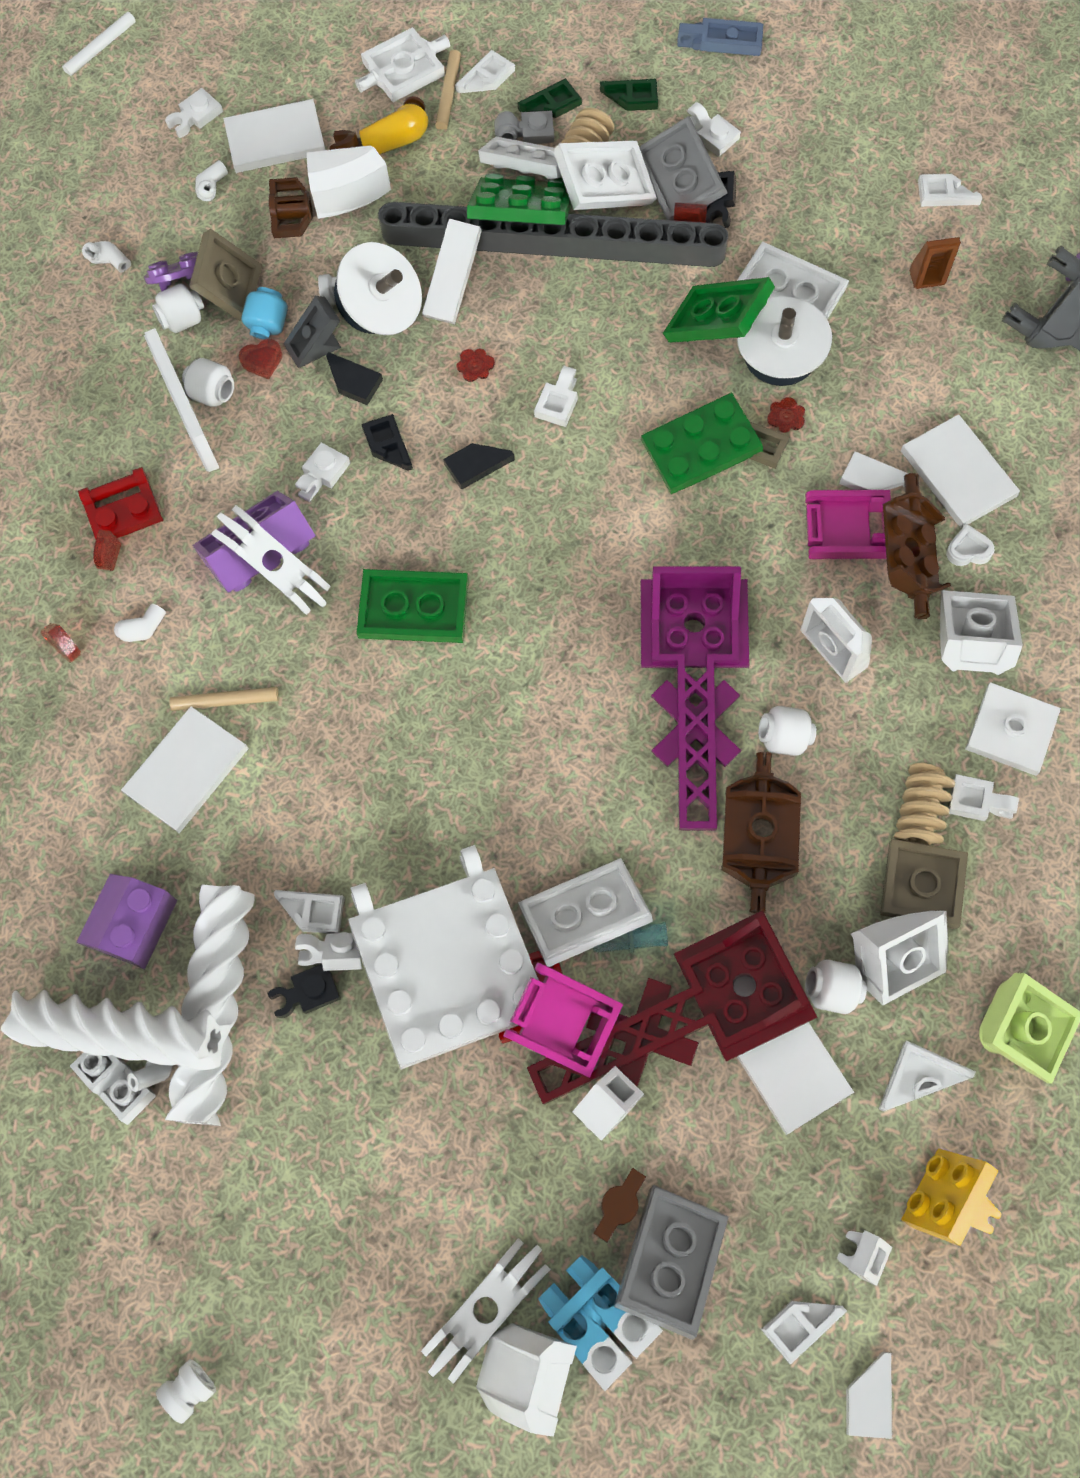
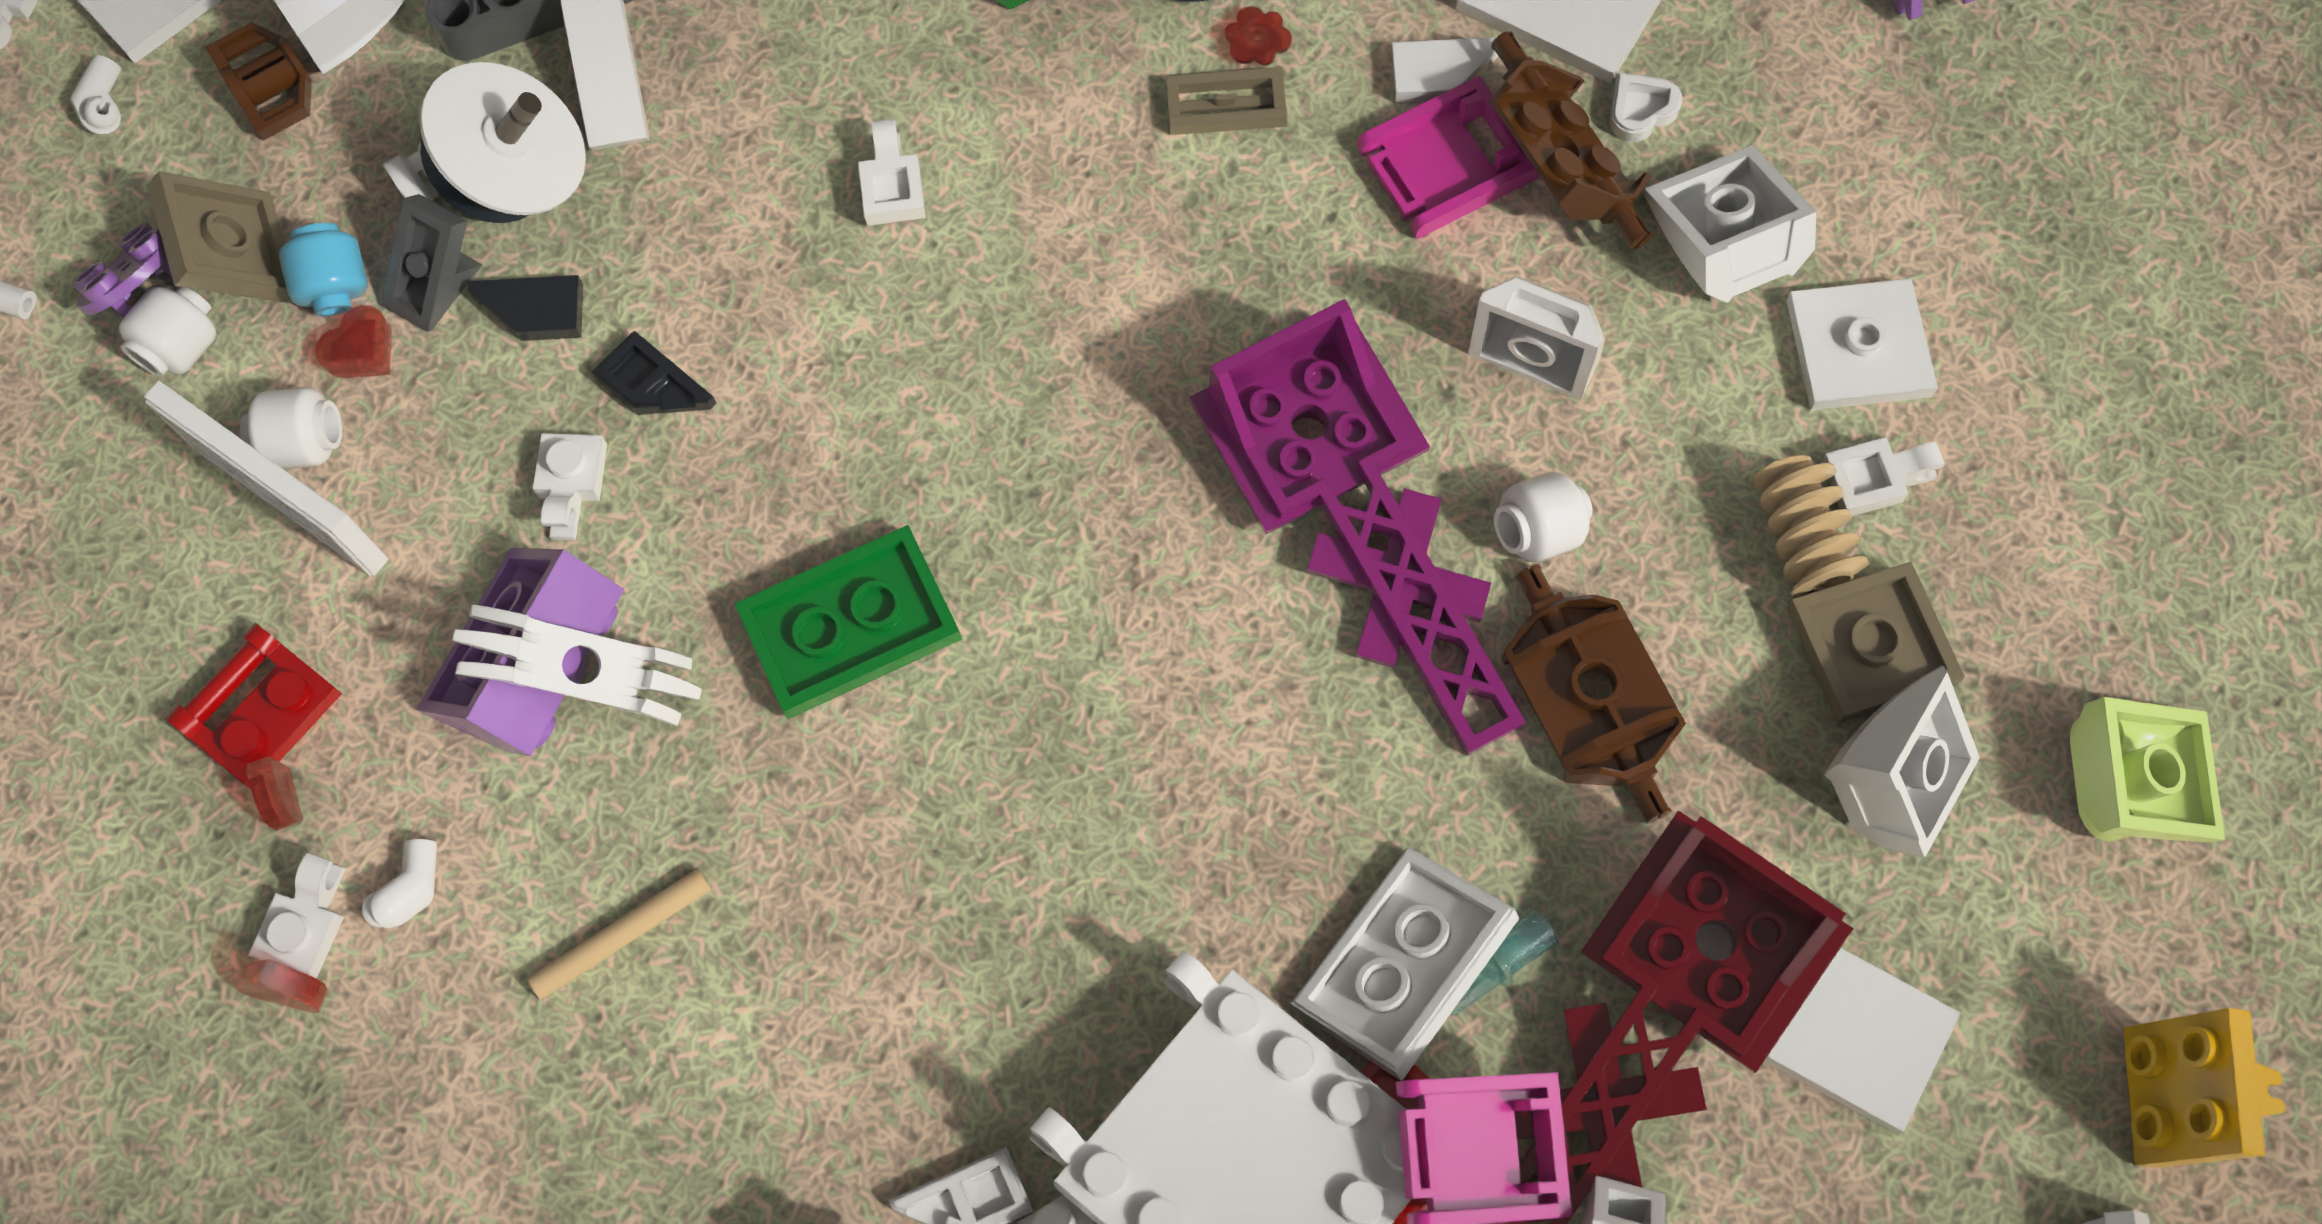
camera: 30 degrees left, 0 degrees up
(84, 620) = (301, 928): none -> white plate
(185, 769) = (621, 1085): white tile -> none
(470, 359) = (710, 181): clear red plant -> none
(476, 462) = (815, 343): black tile -> none
(702, 443) = (1154, 141): green plate -> none
(835, 986) = (1844, 864): white head -> none
(920, 1074) = (2033, 933): white tile -> none

